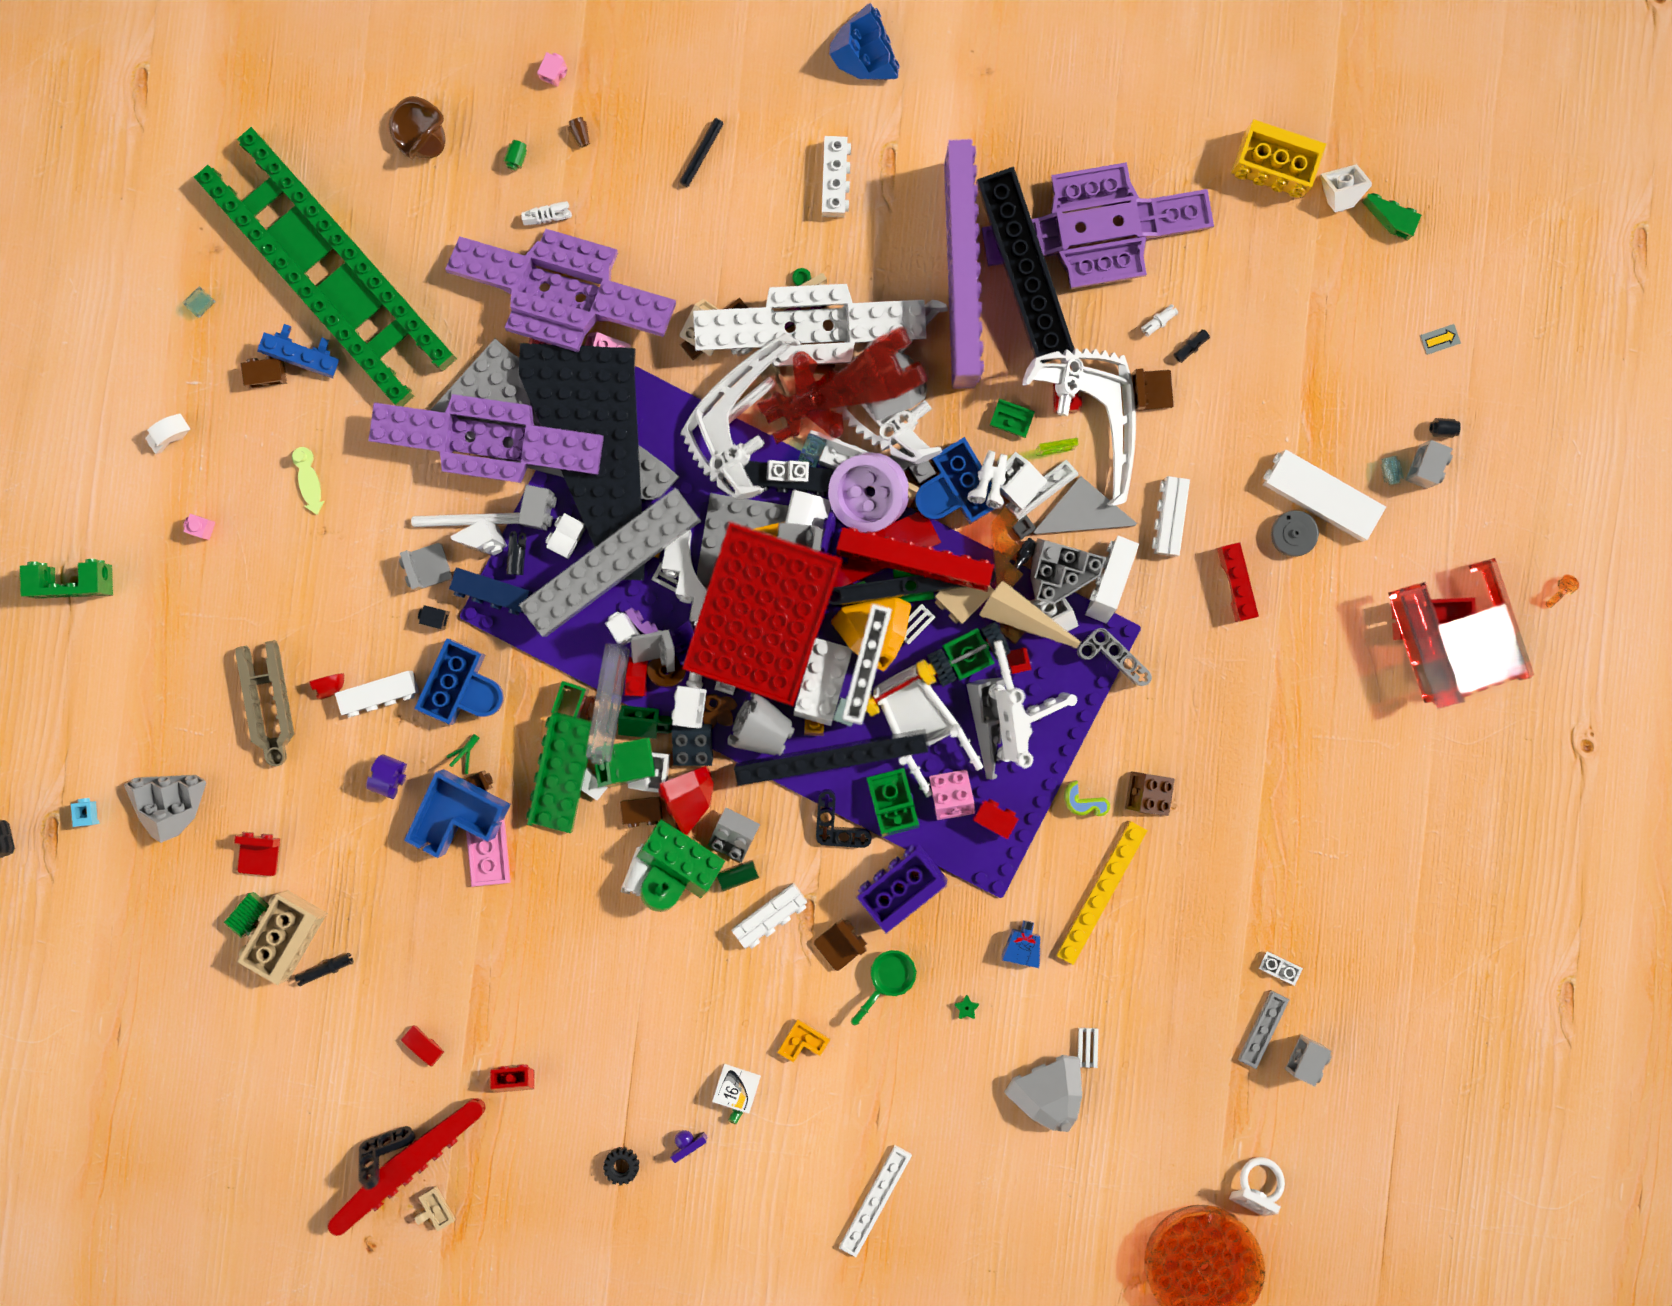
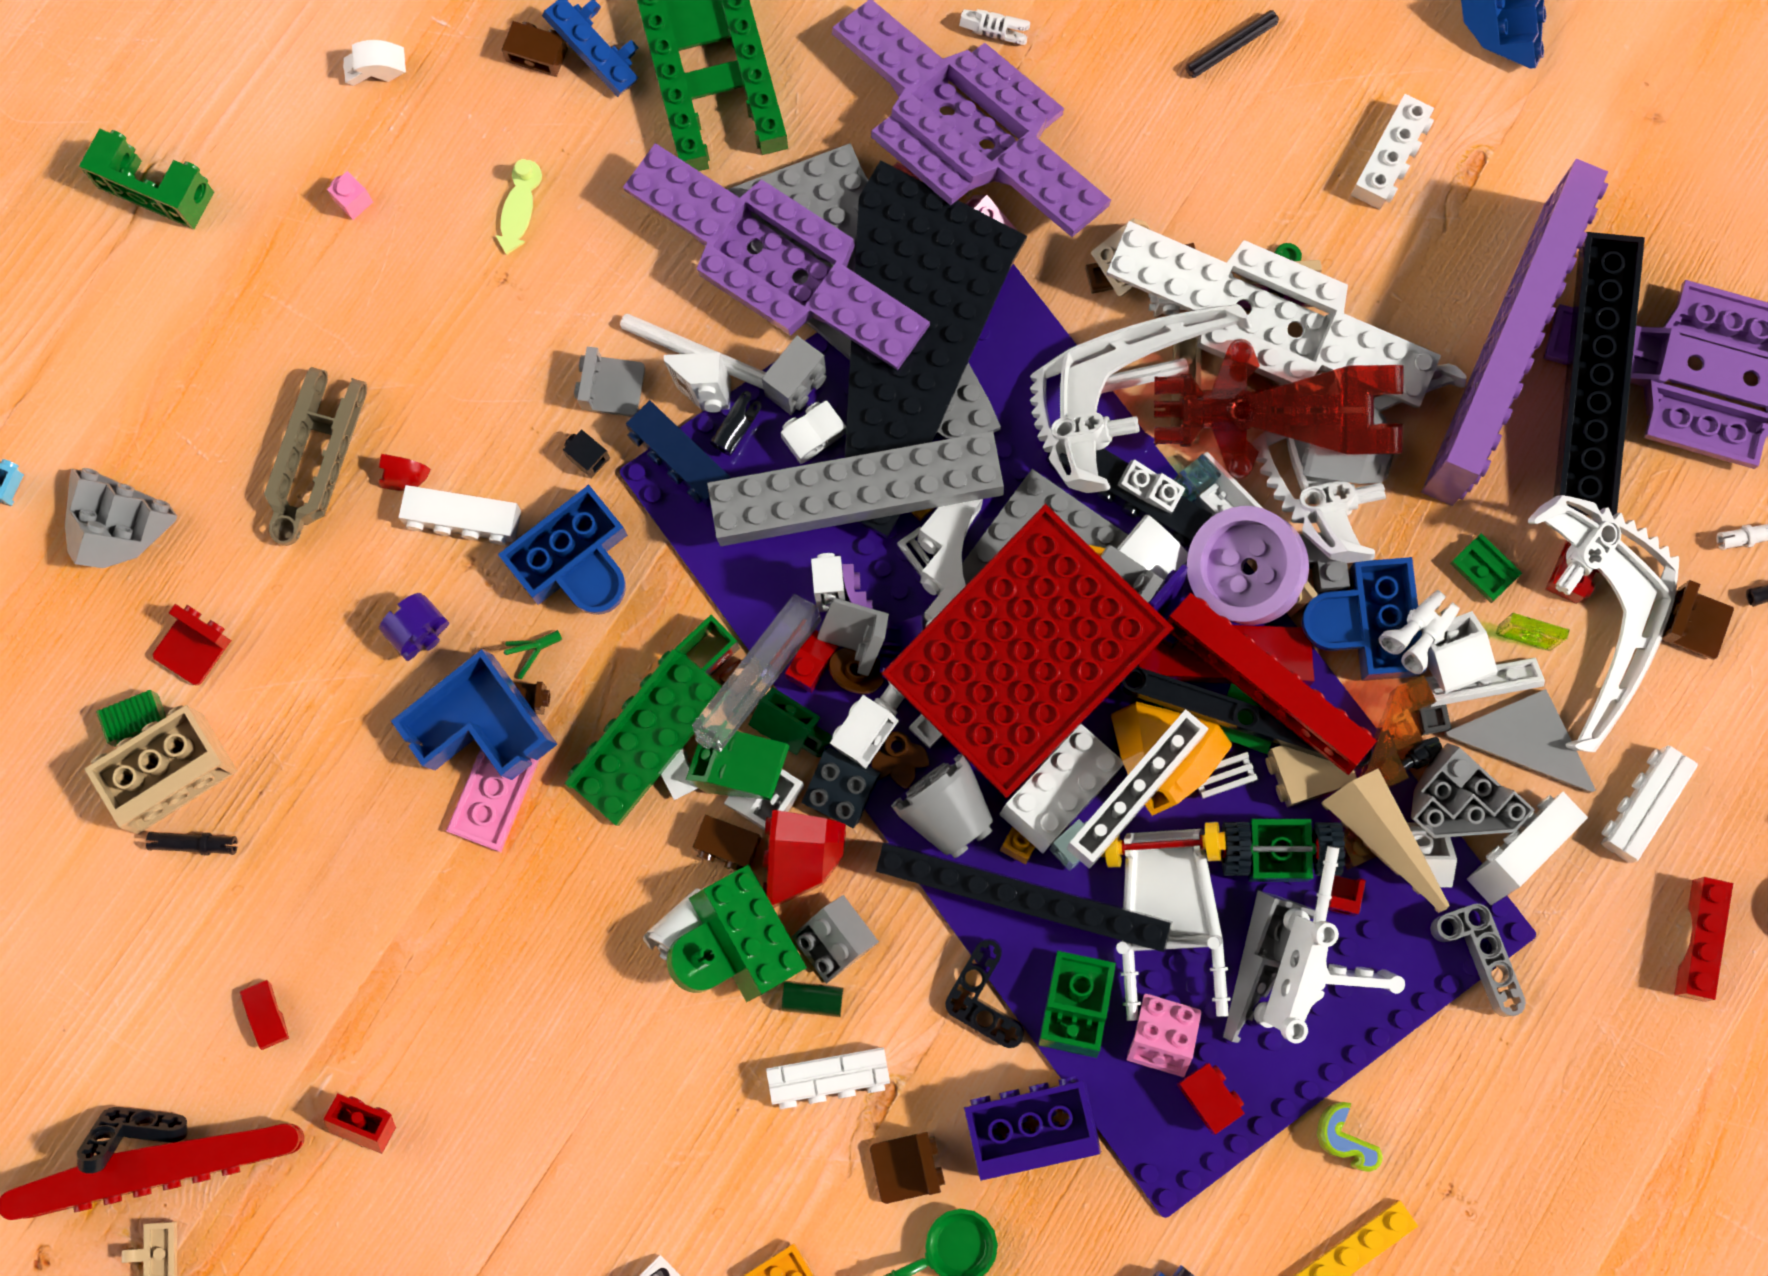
camera: 25 degrees right, 10 degrees down
(1149, 793) = (1445, 1174): reddish brown bracket -> none

